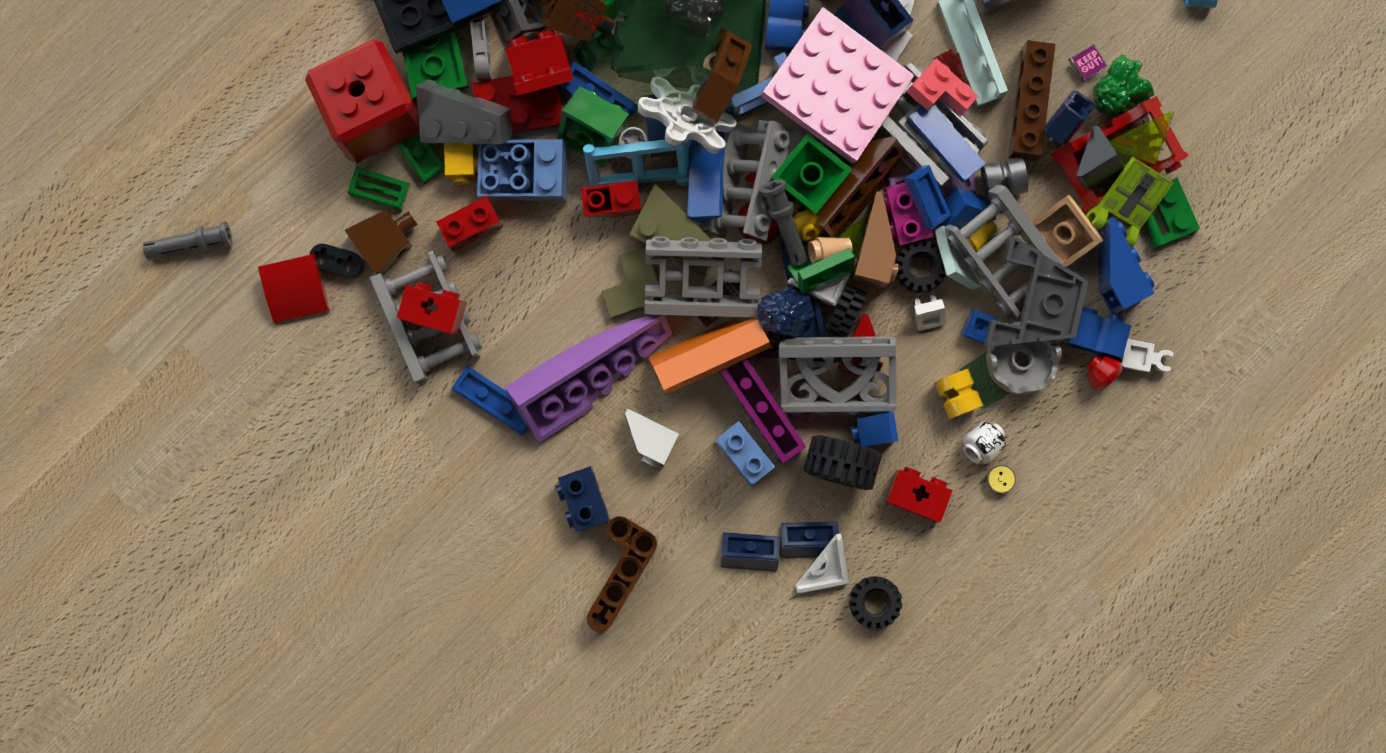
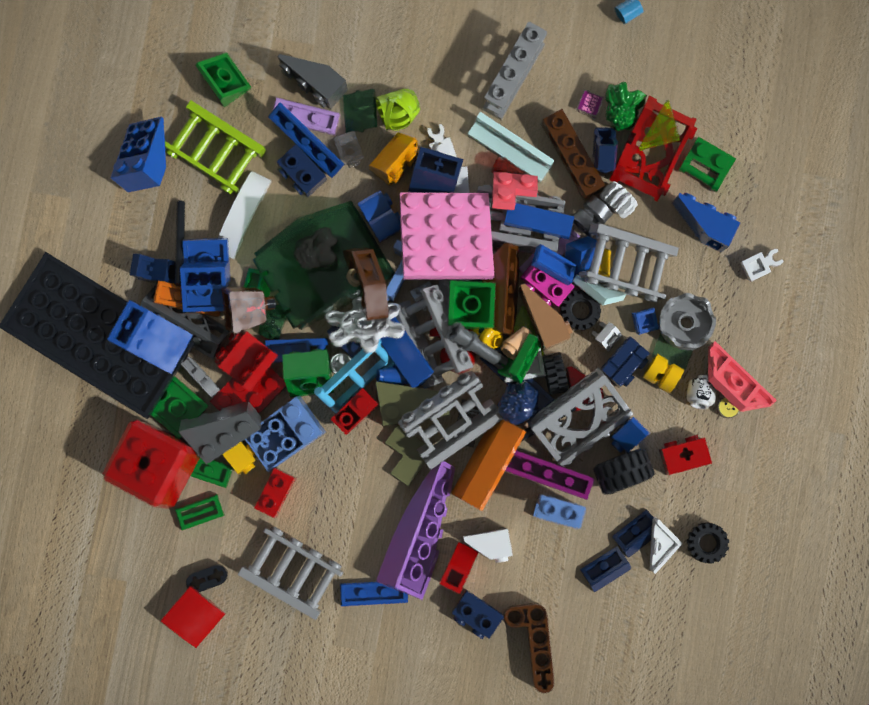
camera: 40 degrees left, 0 degrees up
(201, 239) = (109, 629): dark grey pin -> none
(382, 239) = (227, 543): reddish brown torso -> none
(415, 305) = (284, 575): red brick -> none
(599, 437) = (458, 567): none -> red slope
(675, 190) = (391, 376): none -> blue cone
(927, 353) = (624, 362): none -> dark blue brick
(1027, 457) = (735, 381): none -> coral wing
(1044, 181) = (618, 199): none -> white gear
(1051, 301) = (679, 274): dark grey wing -> none
(1067, 231) = (655, 221): light nougat slope -> none
(1099, 163) = (647, 165): black slope -> none
(1100, 334) = (721, 271): blue brick -> none
(1102, 371) = (742, 293): red cone -> none
(1131, 198) = (681, 172): lime flag -> none

